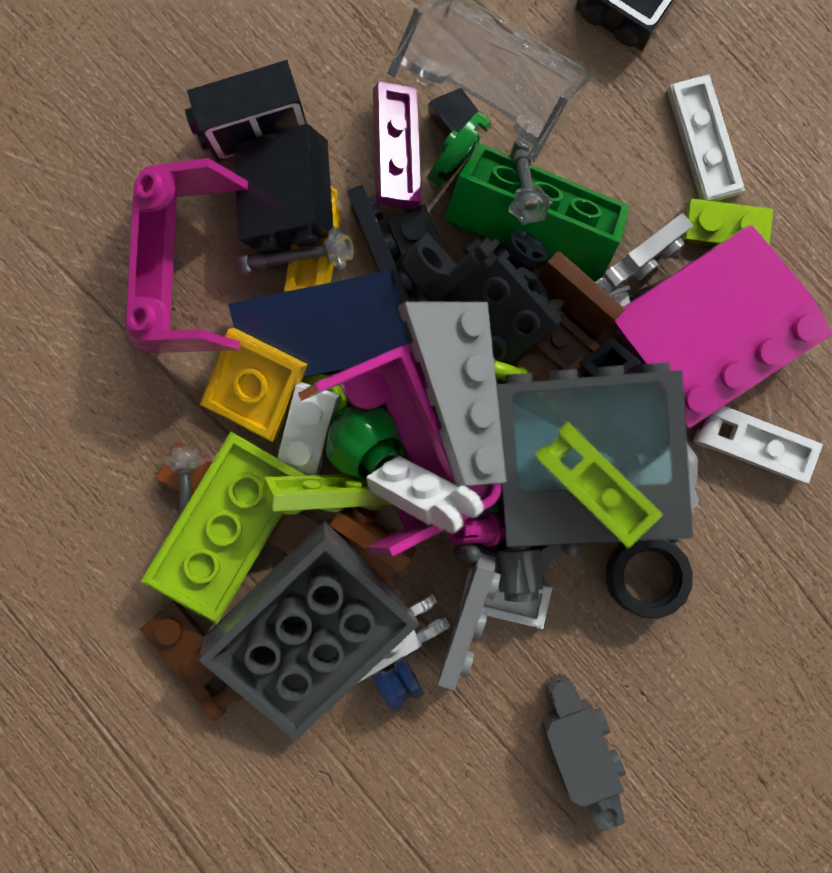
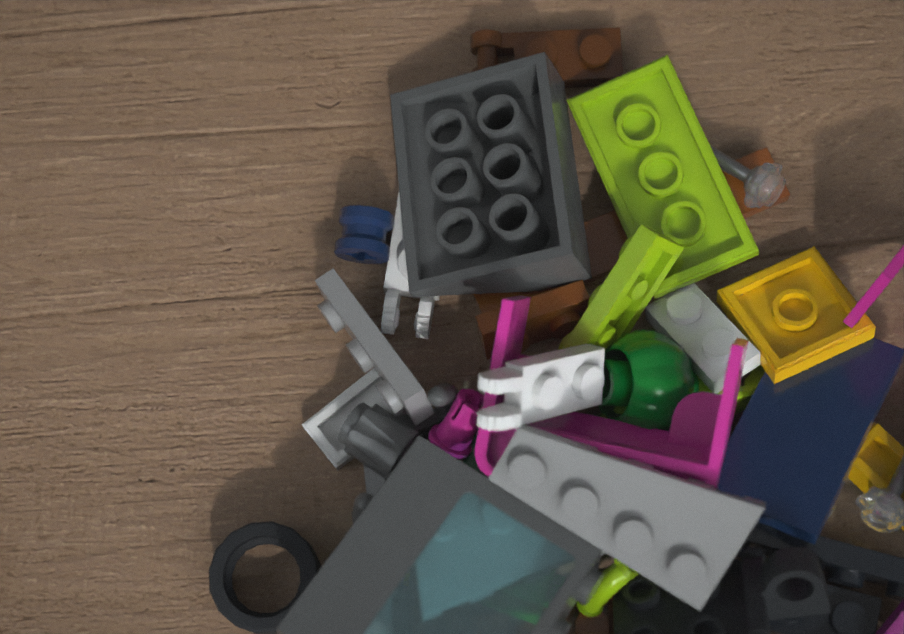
camera: 130 degrees right, 10 degrees down
(582, 755) = (146, 364): dark grey hinge -> none
(599, 486) = (410, 568): lime plate -> none

